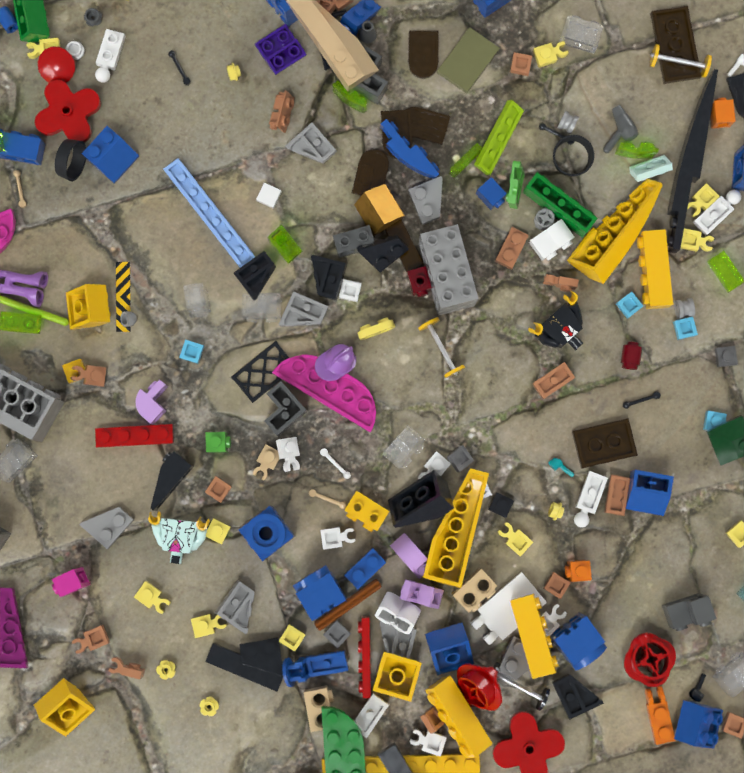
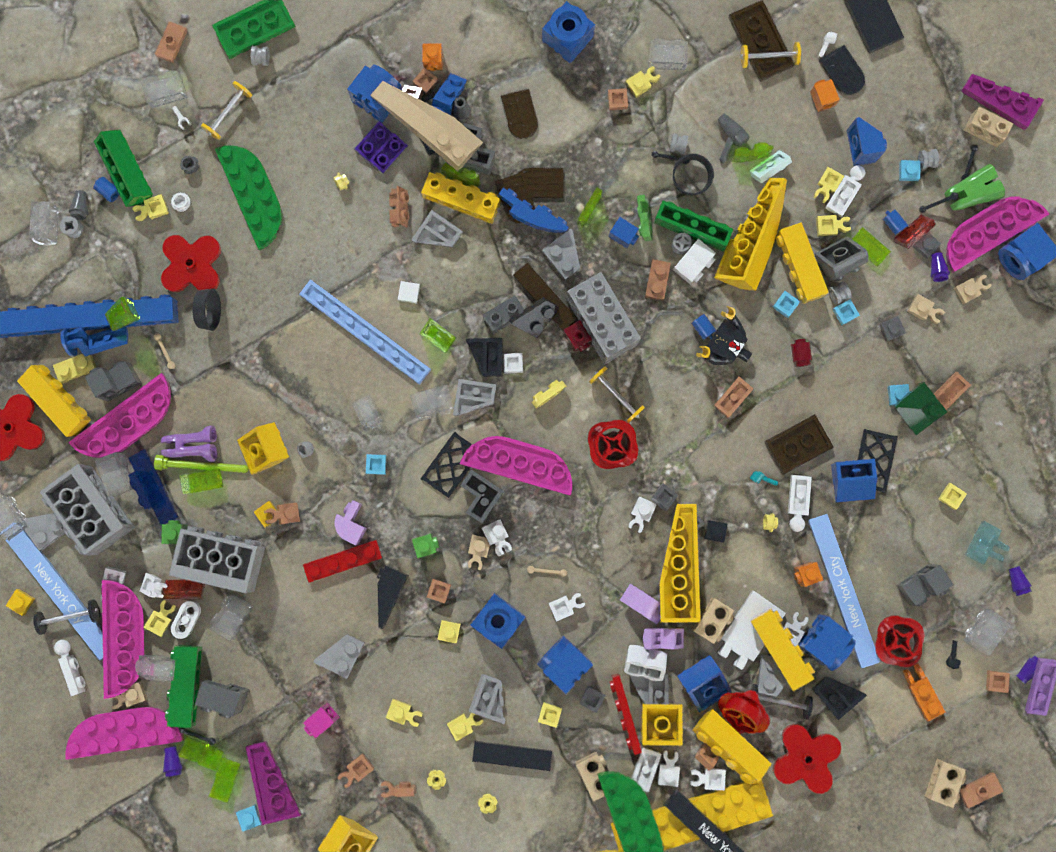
camera: 10 degrees left, 0 degrees up
(56, 64) = (167, 220): red dish -> none
(109, 54) = (215, 197): white plate -> none
(110, 154) = (244, 294): blue slope -> none
(122, 293) = (293, 425): sticker -> none
(146, 60) = (252, 192): none -> green plate
(178, 535) = (412, 646): light aqua torso -> none
(186, 80) = (297, 202): black hinge -> none
(255, 274) = (418, 372): black wing -> none
(262, 655) = (526, 740): black wing -> none
(313, 666) = (578, 736): blue piece -> none
(324, 452) = (559, 542): white hinge -> none
(335, 362) = (518, 437): medium lavender piece -> none
(344, 118) = (461, 197): none -> yellow brick
(347, 605) = (598, 664): dark orange axle -> none
(365, 568) = (602, 628): blue brick -> none
(366, 511) = (588, 572): yellow brick -> none
(371, 171) = (502, 245): dark brown window -> none
(379, 209) = (519, 276): slope -> none
(392, 724) = (669, 772): none -> white plate
(404, 447) = (607, 501): clear brick -> none
(421, 501) = (638, 549): black slope -> none
(440, 382) = (629, 455): none -> red piece
(468, 60) = (565, 109): olive tile -> none
(499, 137) = (616, 176): lime plate -> none
(516, 541) = (740, 561): light yellow plate -> none
(543, 305) = (704, 327): none -> blue piece
(556, 585) = (790, 594): nougat plate -> none
(564, 283) = (717, 300): nougat plate -> none
(609, 596) = (843, 590): none -> light blue tile
(617, 495) = (824, 491): nougat plate -> none
(656, 395) = (836, 384): black hinge -> none
(690, 163) = (807, 151): black slope -> none
(690, 476) = (890, 454): none -> black window
(695, 275) = (841, 258): none -> dark grey brick
(698, 724) = (963, 690): blue slope -> none

